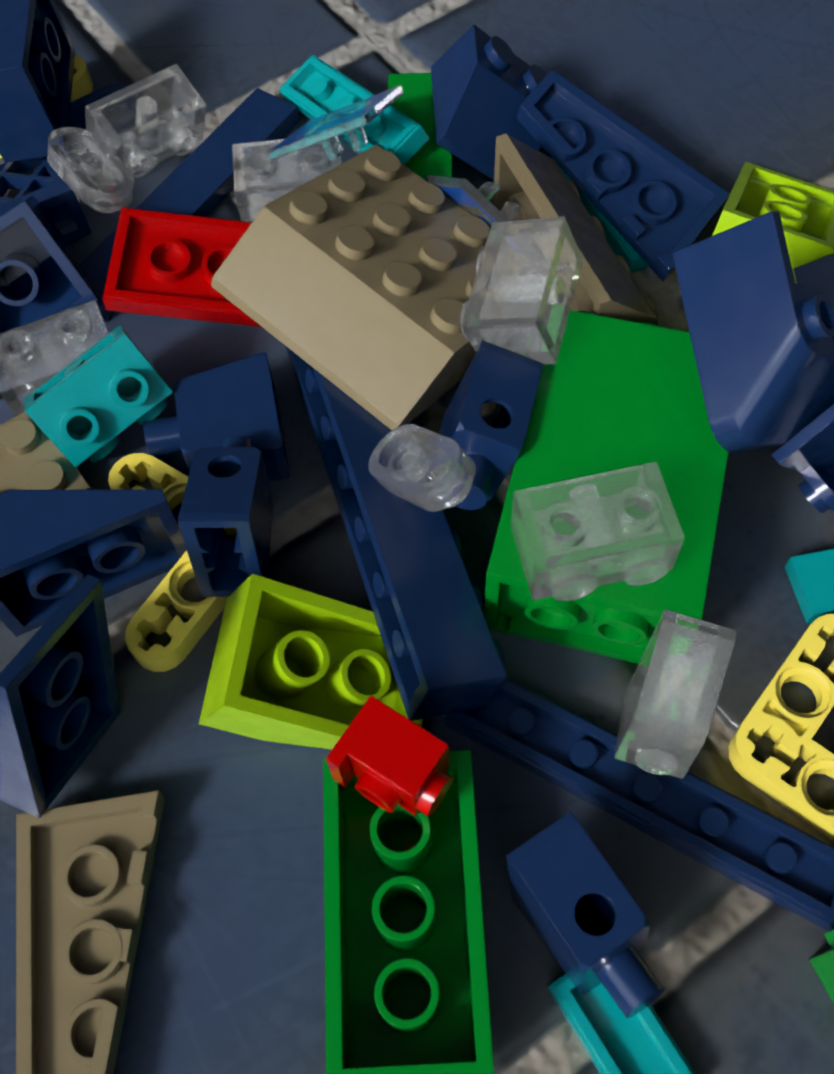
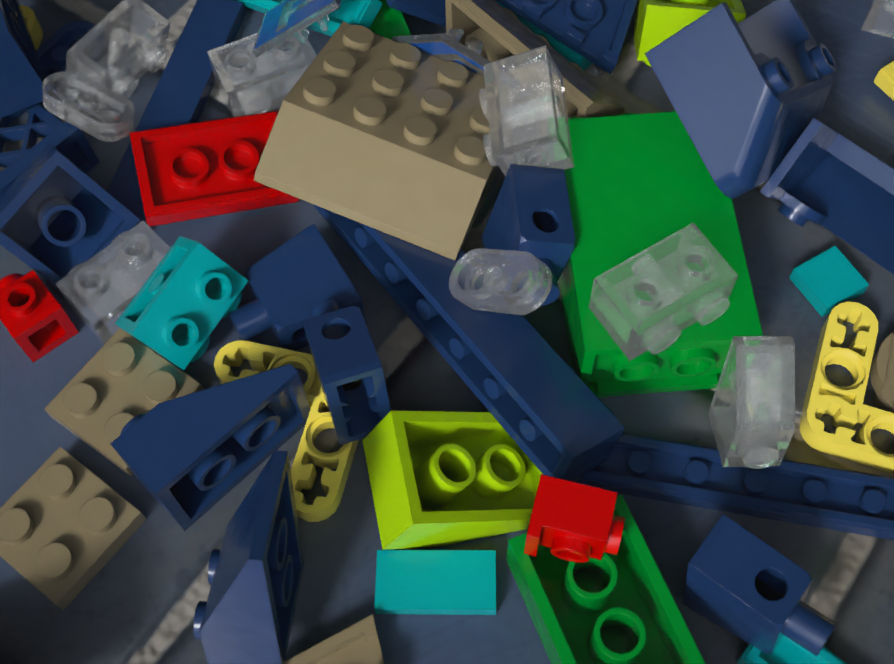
camera: 20 degrees left, 0 degrees up
(246, 779) = (436, 582): none -> teal tile

